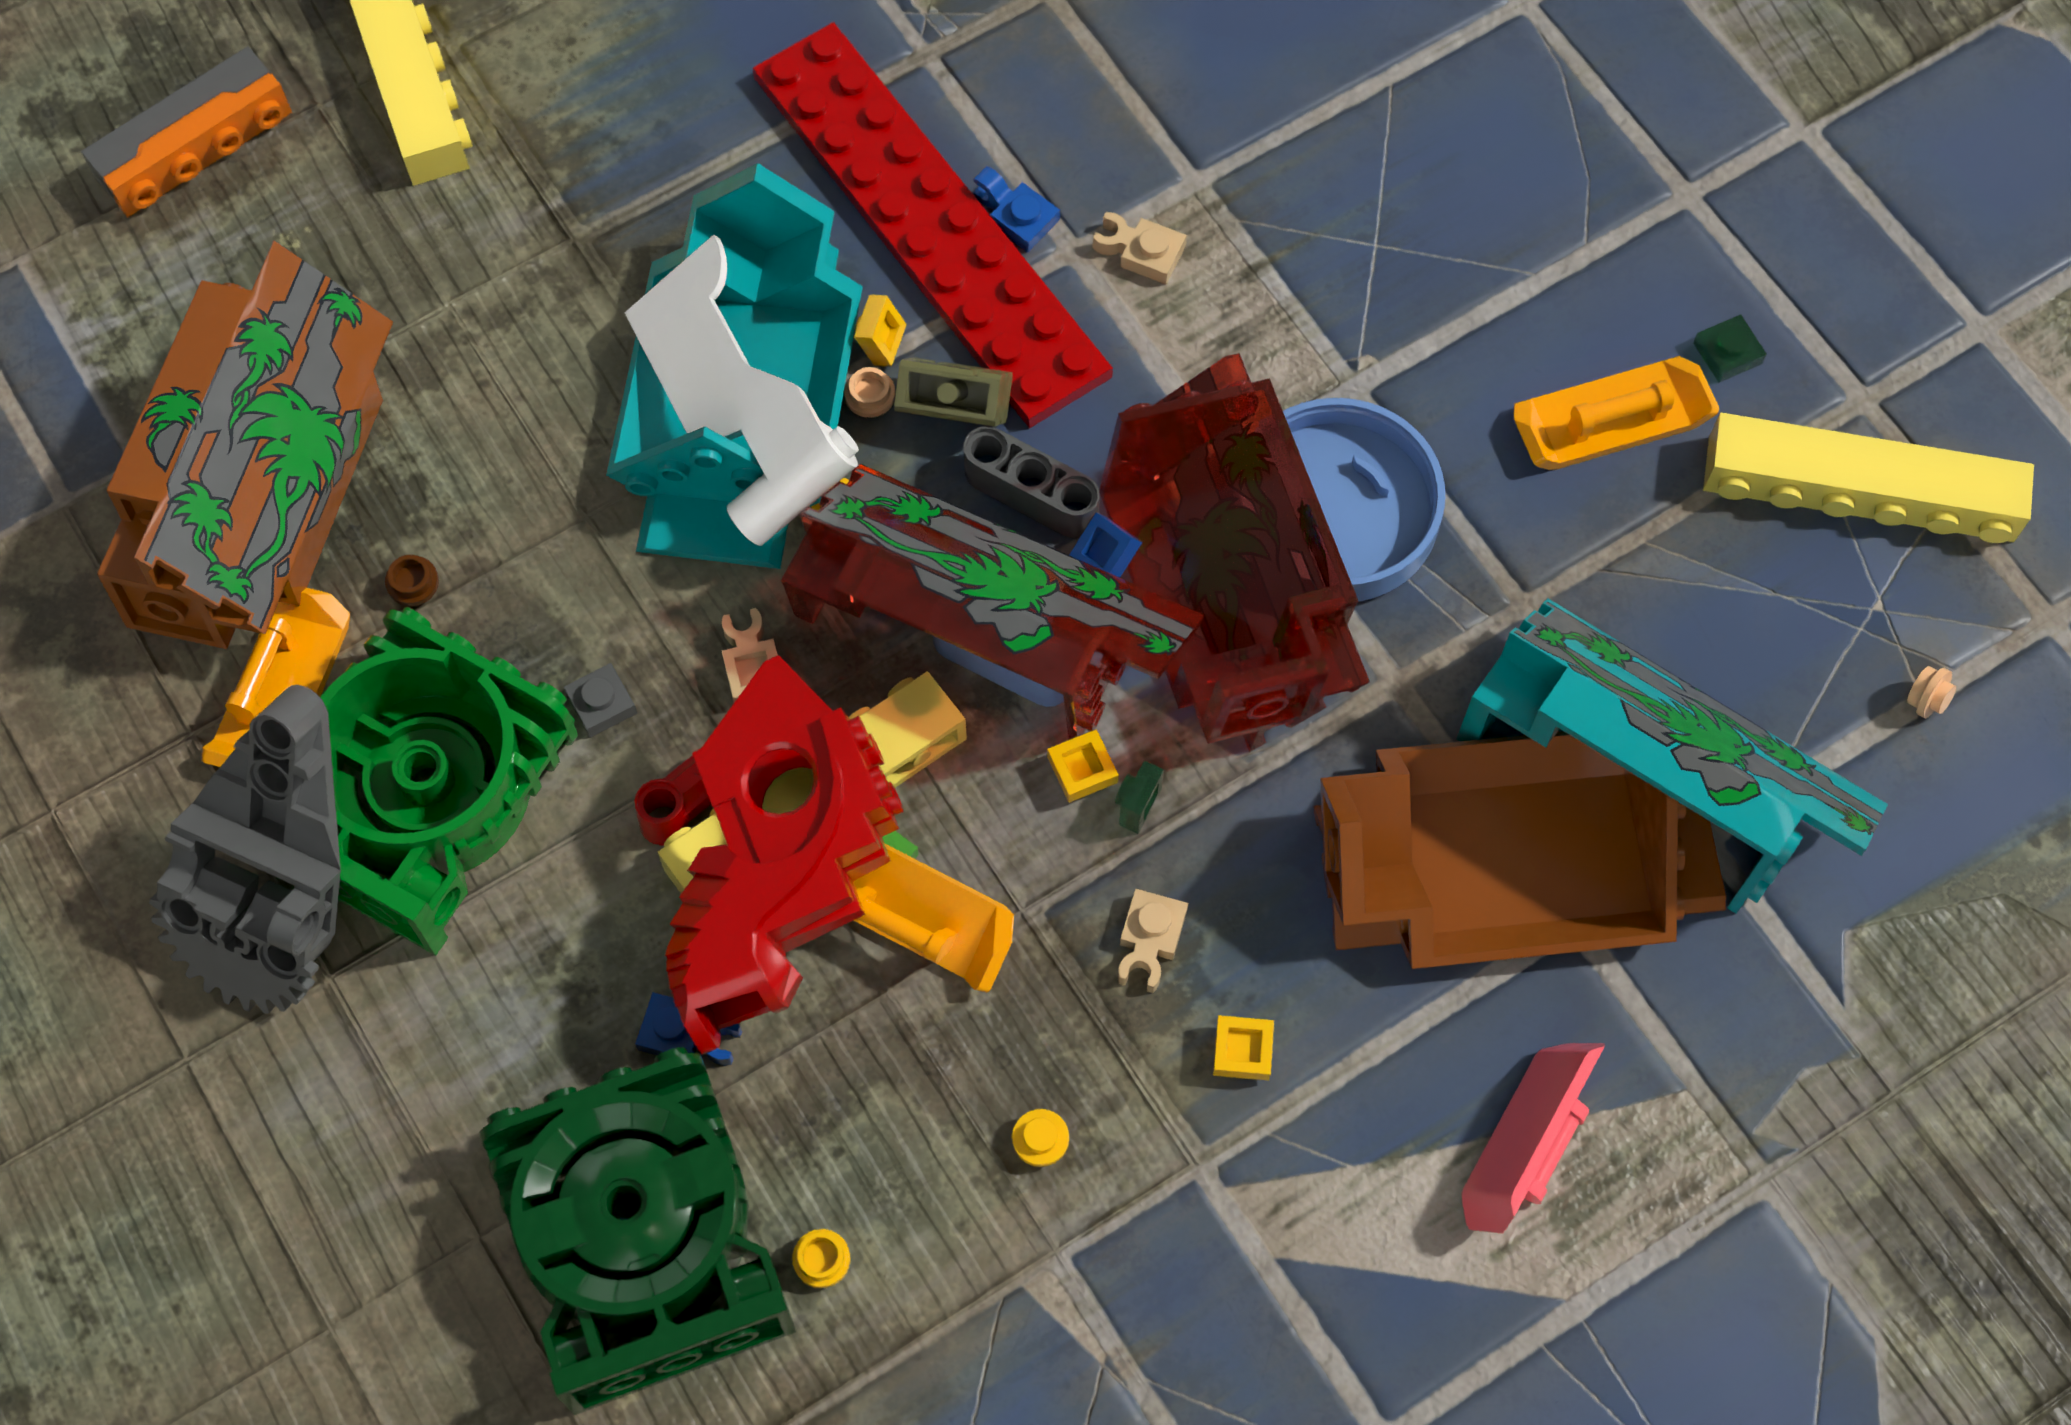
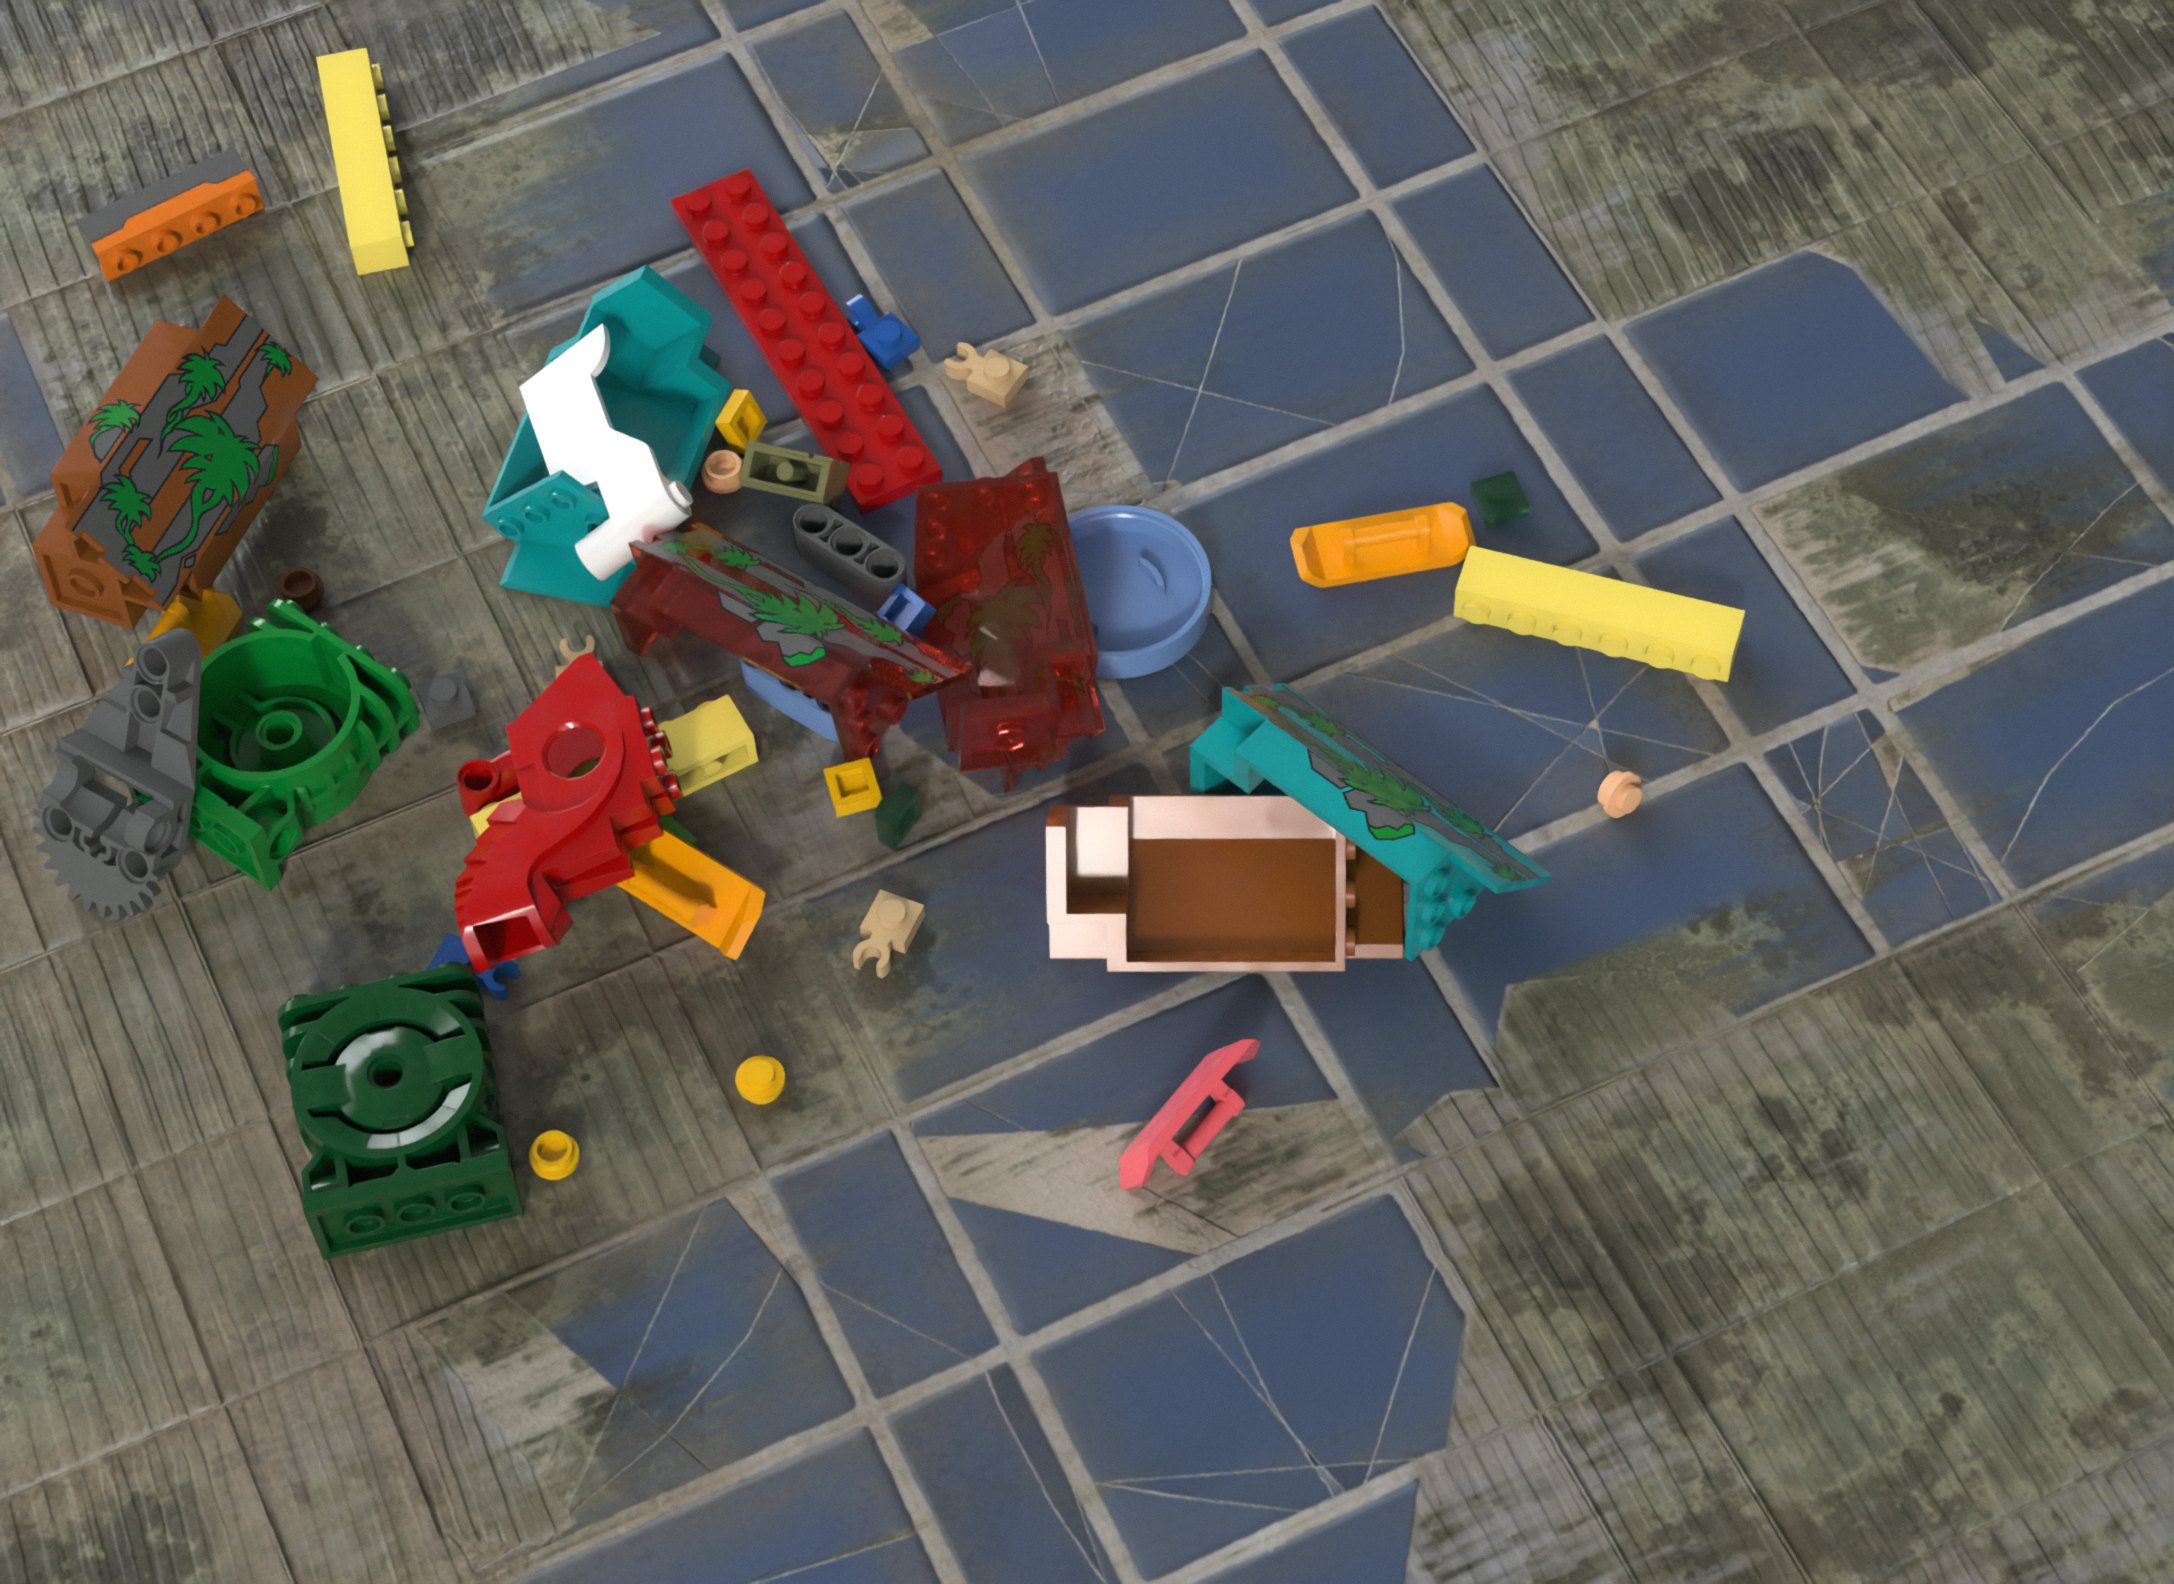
camera: 10 degrees right, 10 degrees down
(1243, 1047) = (949, 1024): yellow plate -> none

